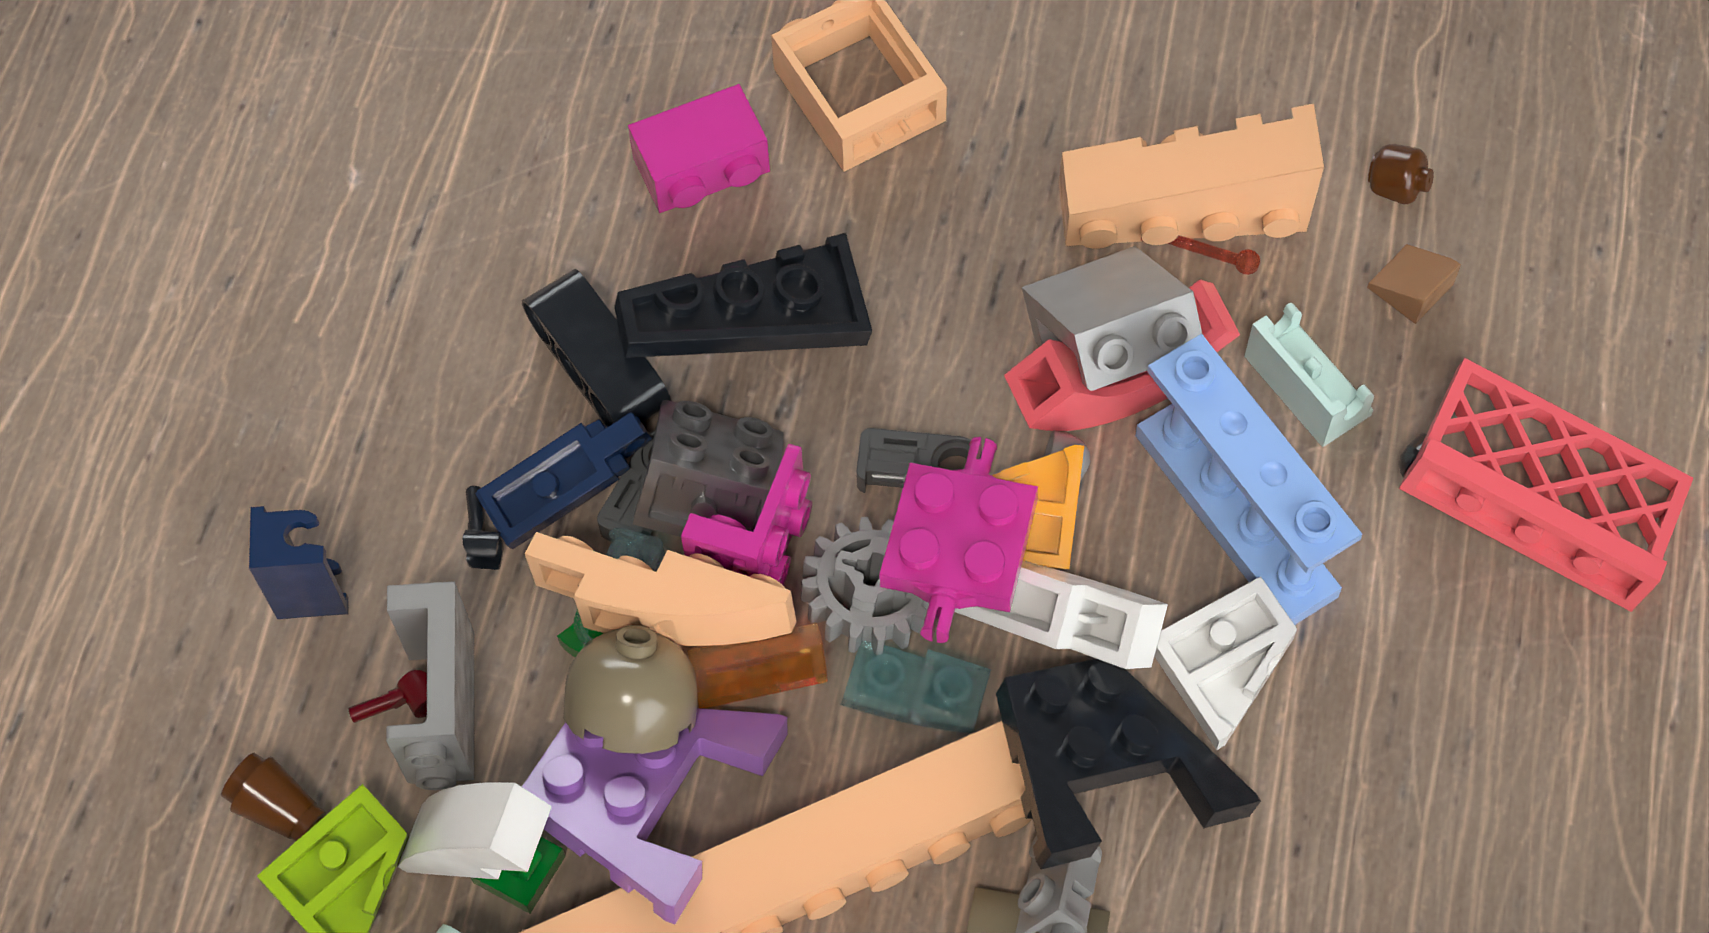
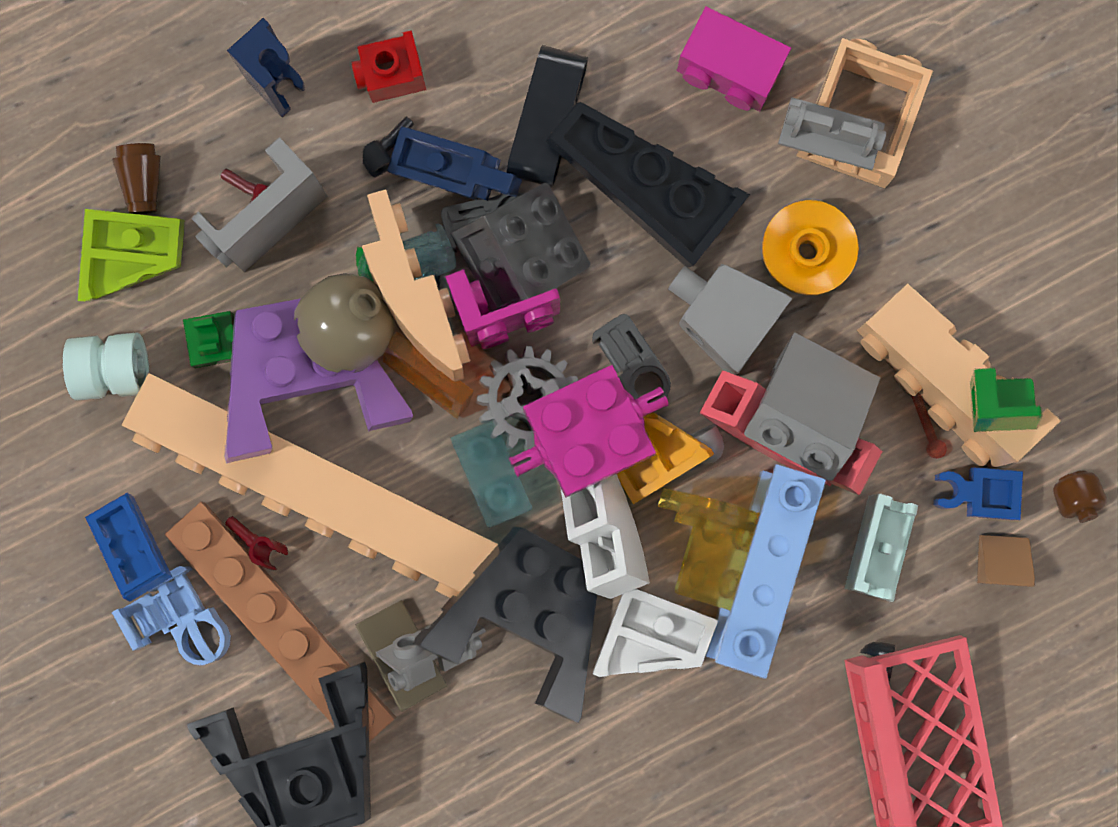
camera: 50 degrees right, 20 degrees up
(411, 479) = (401, 79): none -> red brick
(476, 831) = (188, 311): white slope -> none
(858, 103) = (832, 134): none -> light grey hinge
(949, 337) = (727, 313): none -> light grey torso
(952, 196) = (826, 231): none -> light orange dish
(1181, 511) = (715, 547): none -> clear yellow bracket
(1255, 139) = (1002, 402): none -> green panel
(1328, 243) = (987, 493): none -> blue plate

